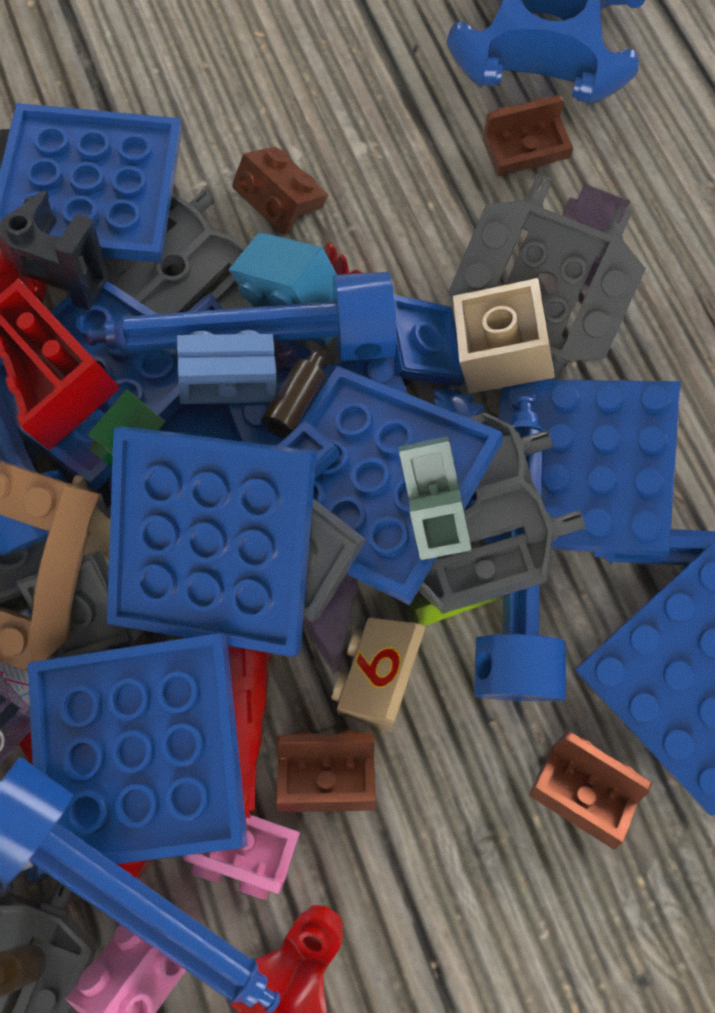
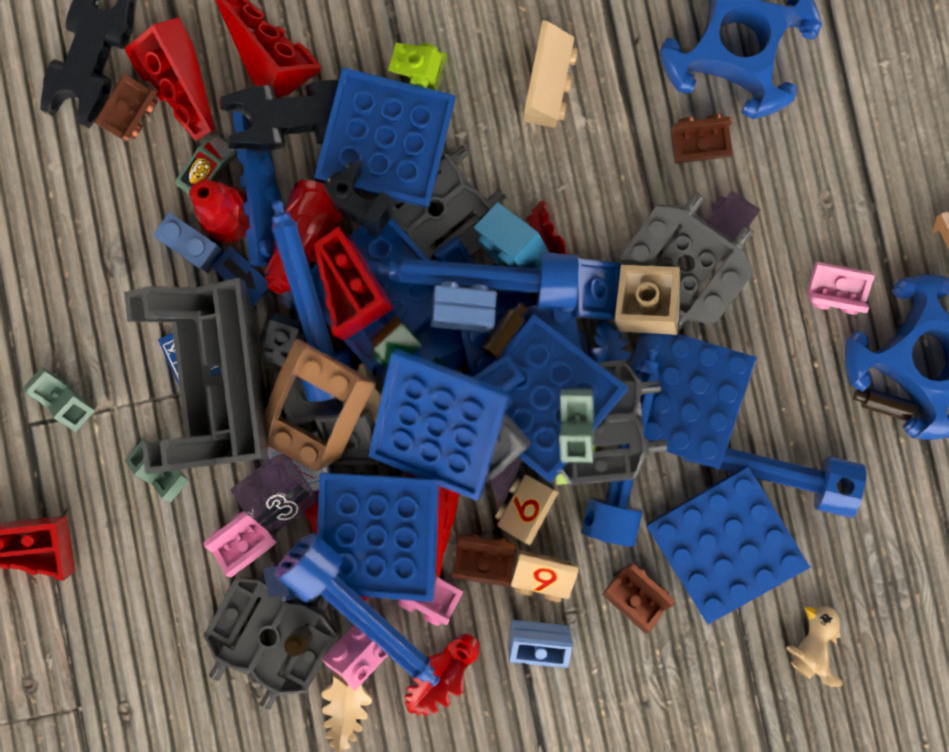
camera: 10 degrees right, 15 degrees up
(126, 84) = (420, 63): none -> lime tile
(277, 187) = (516, 149): copper bracket -> none
(306, 89) = (550, 76): none -> tan slope
(428, 778) = (543, 575): none -> tan slope
(443, 900) = (539, 644): none -> medium blue brick

